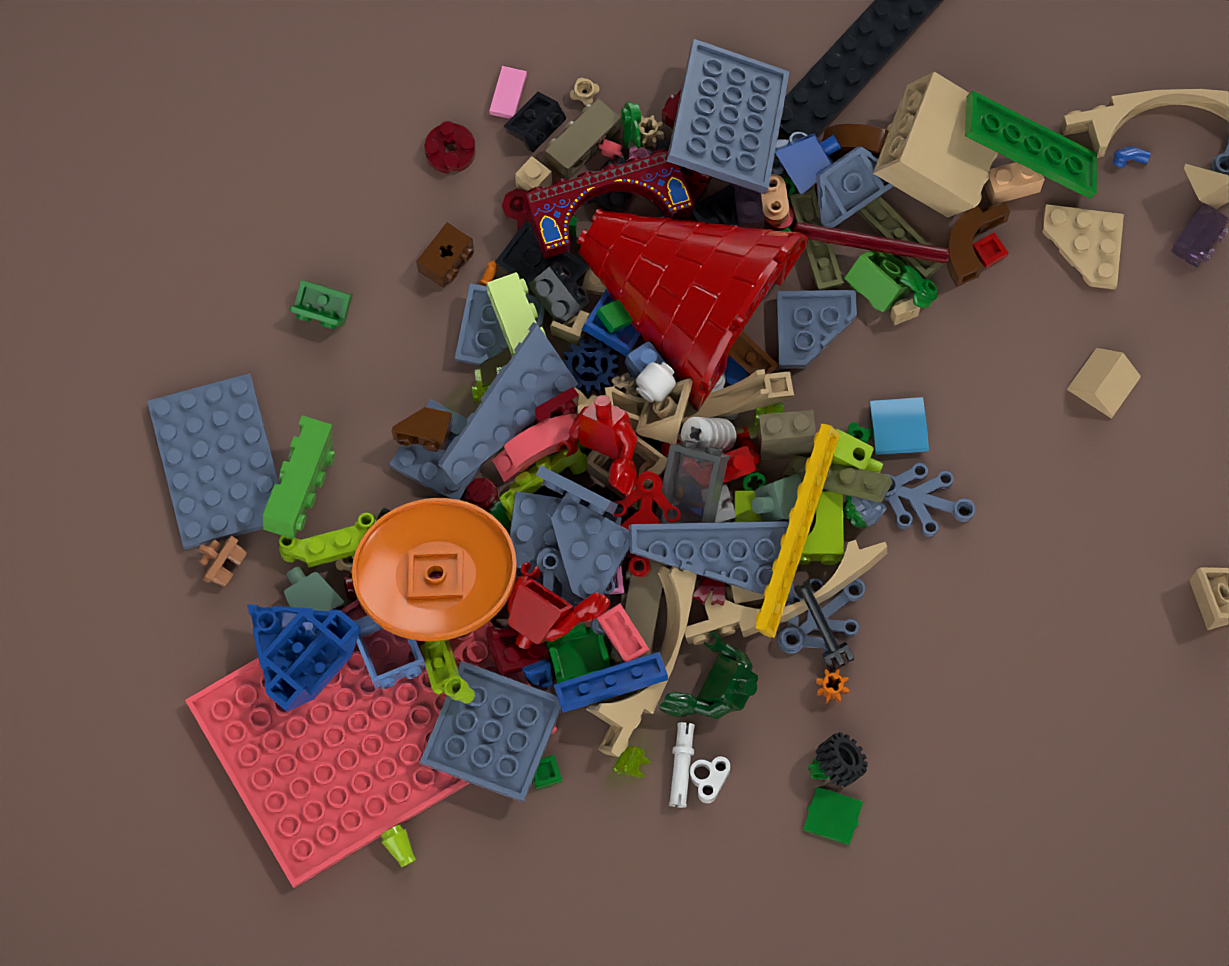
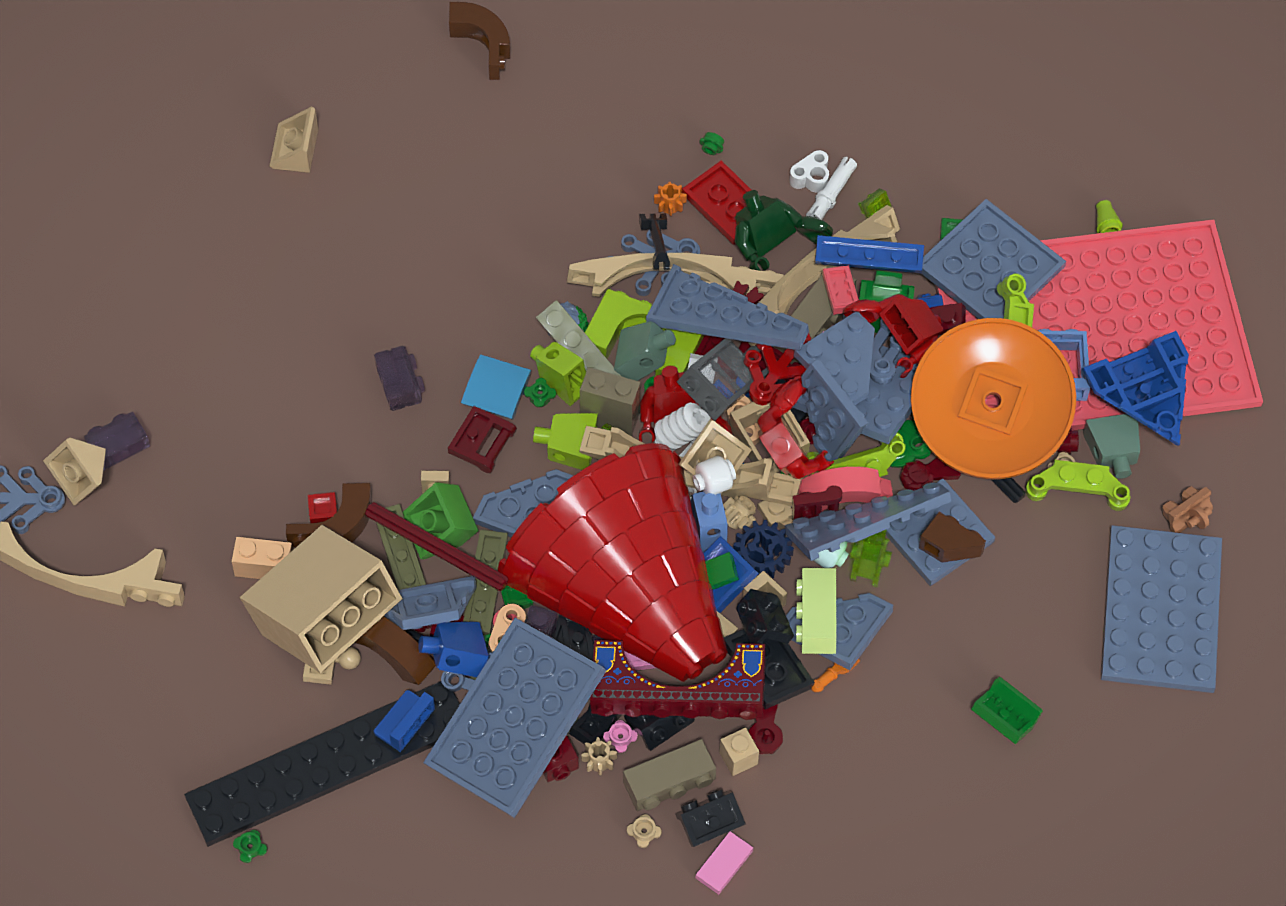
camera: 160 degrees left, 10 degrees down
(300, 478) = (1091, 538): bright green wedge -> none
(447, 242) = (854, 724): reddish brown brick -> none
(450, 134) = (805, 842): dark red plate -> none
(610, 149) = (644, 751): coral plate -> none
(629, 120) = (616, 761): green plate -> none
(781, 710) = (718, 197): none -> red plate
(794, 539) = (638, 308): yellow plate -> none
(813, 395) = (566, 438): none -> lime torso
(821, 91) = (405, 719): none -> blue panel
(833, 816) = (718, 111): green piece -> none
(841, 759) = (682, 136): black tyre -> none
(895, 370) = (474, 434): none -> dark red plate
(920, 496) = (509, 322): sand blue plant -> none
(924, 290) = (412, 491): green plate -> none
(989, 395) = (398, 377): none -> clear purple brick
(1031, 144) = (234, 560): green plate -> none
(1087, 241) = (223, 483): tan plate -> none
(1103, 805) = (481, 24): none -> reddish brown arch
(1105, 381) = (286, 355): tan slope -> none
(1130, 153) = (135, 546): blue arm -> none

